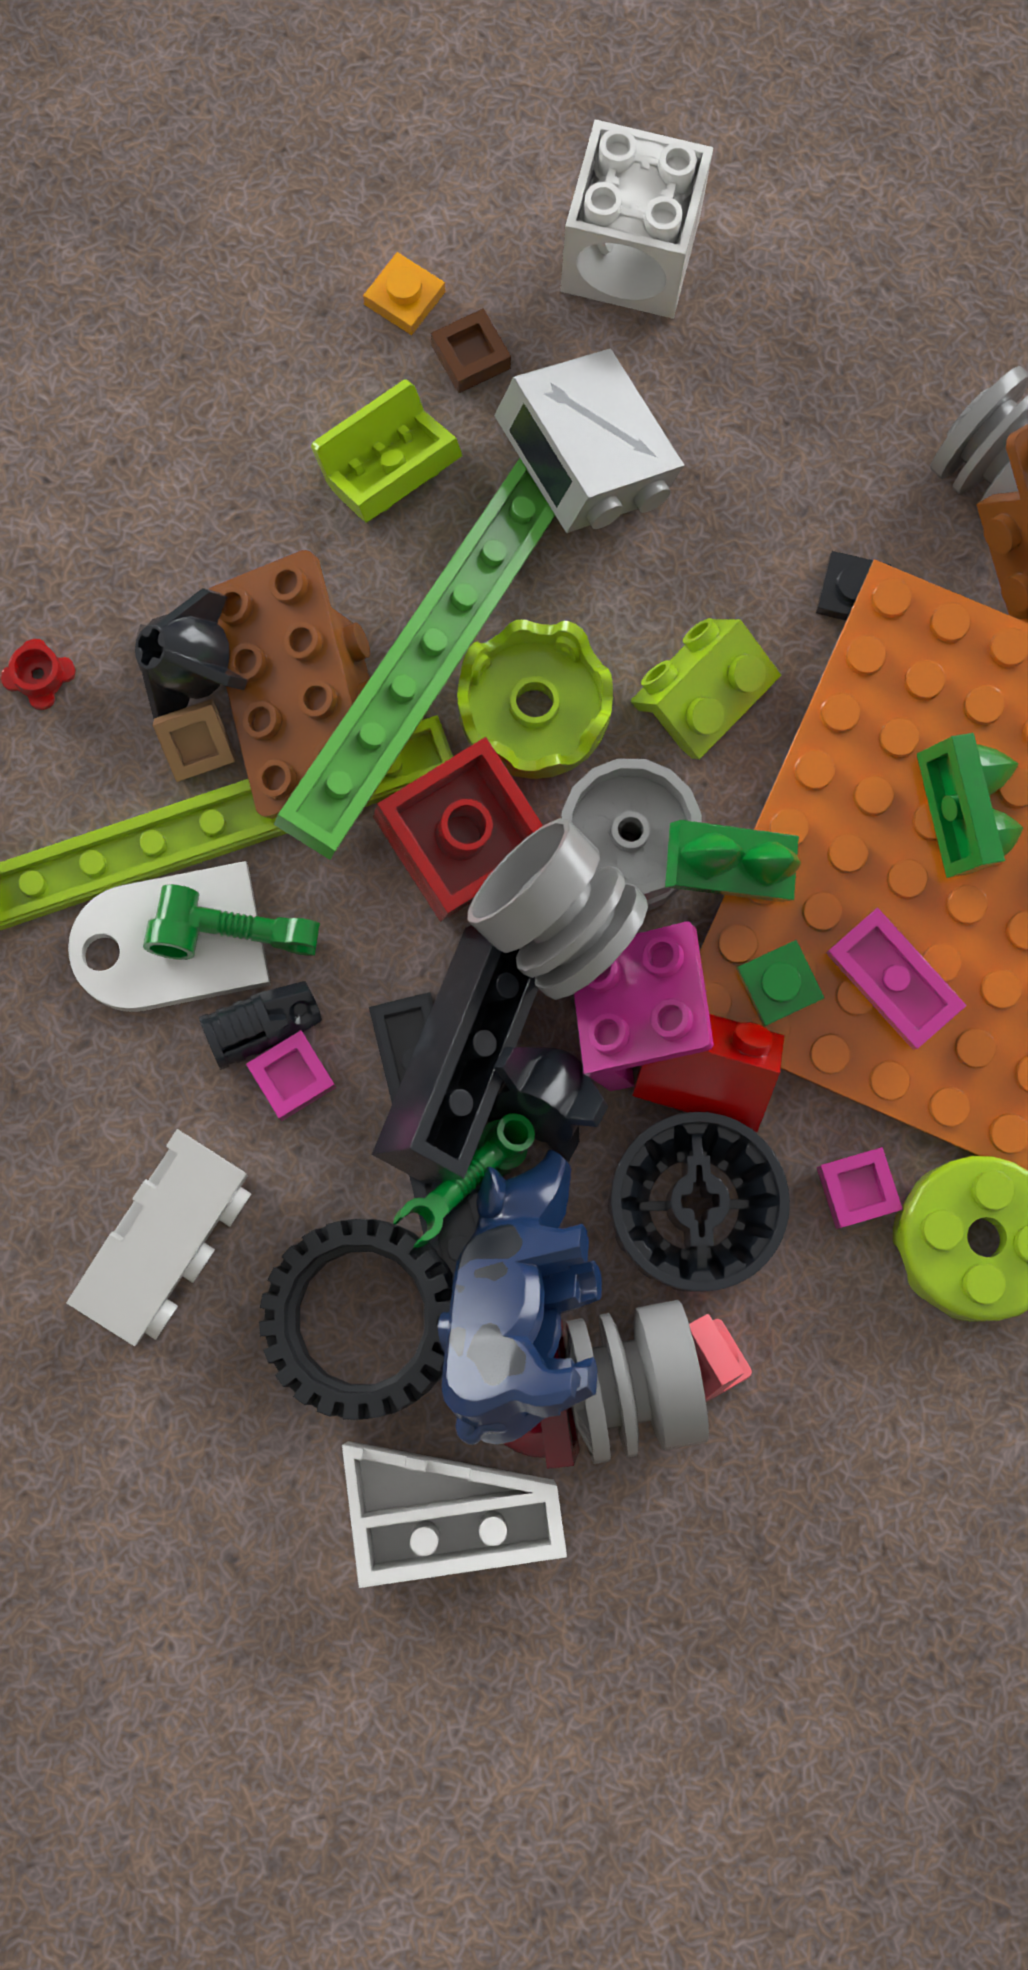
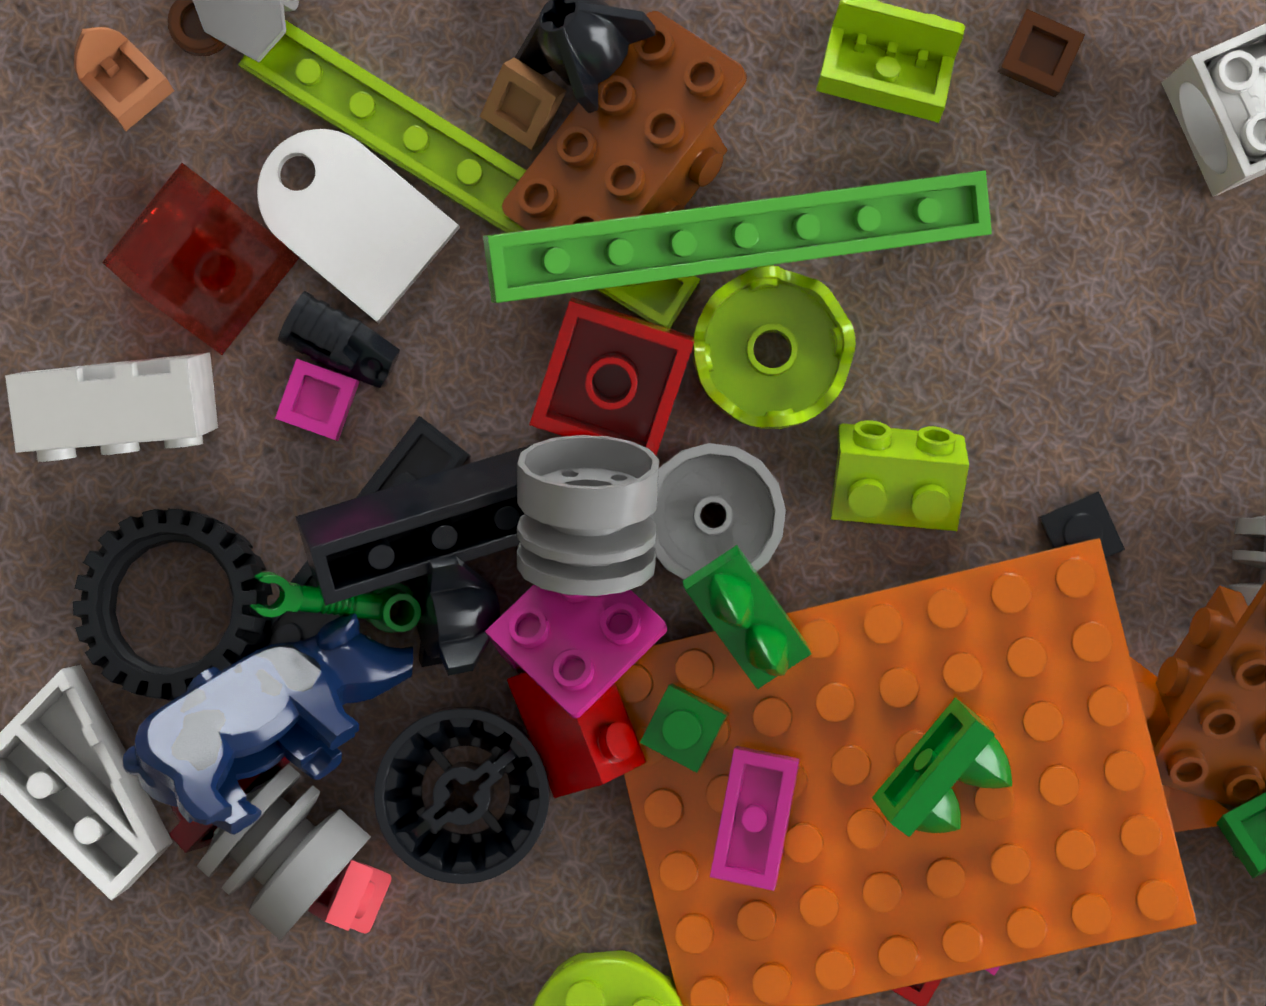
camera: 55 degrees right, 10 degrees up
(103, 1077) = (200, 259): none -> clear red slope
(181, 920) = (368, 216): green brick -> none
(588, 440) = (1030, 219): brick -> none
(859, 1188) = (576, 909): dark pink plate -> none

